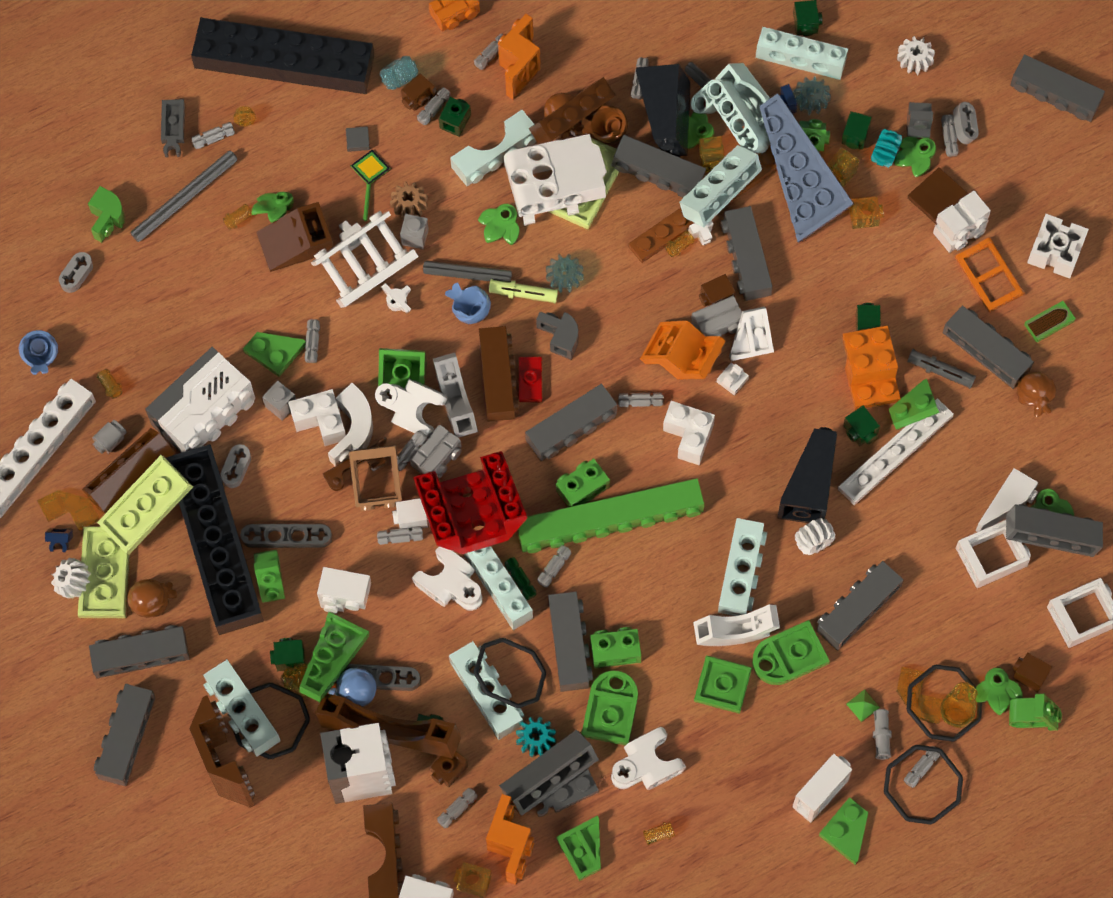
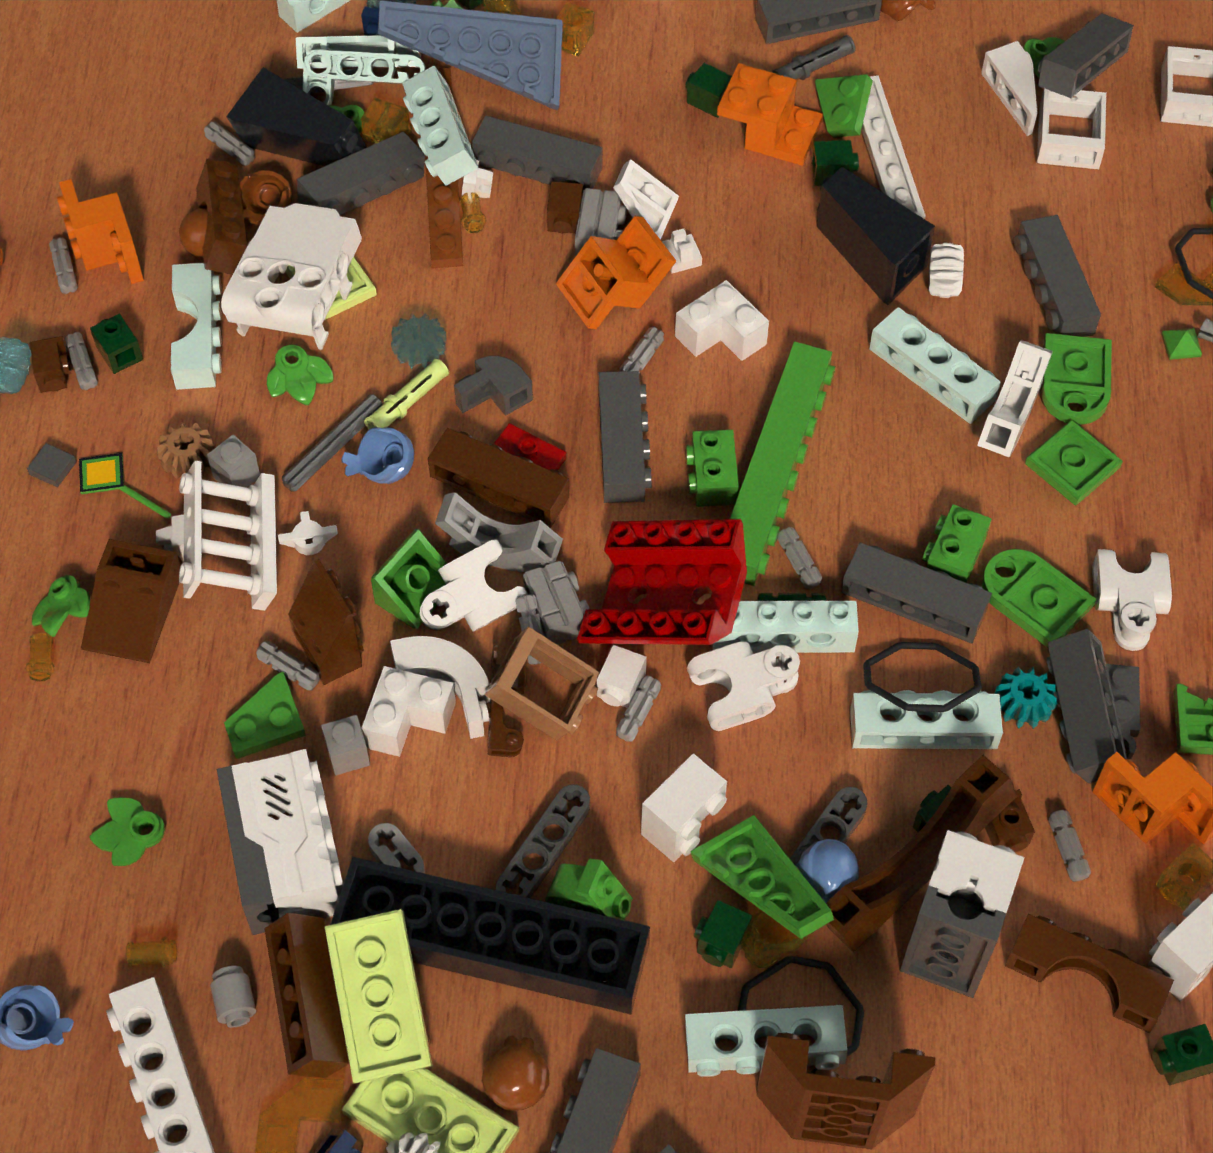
camera: 60 degrees left, 10 degrees down
(166, 326) = (123, 833): none -> bright green plate
(339, 346) = (326, 625): none -> reddish brown slope

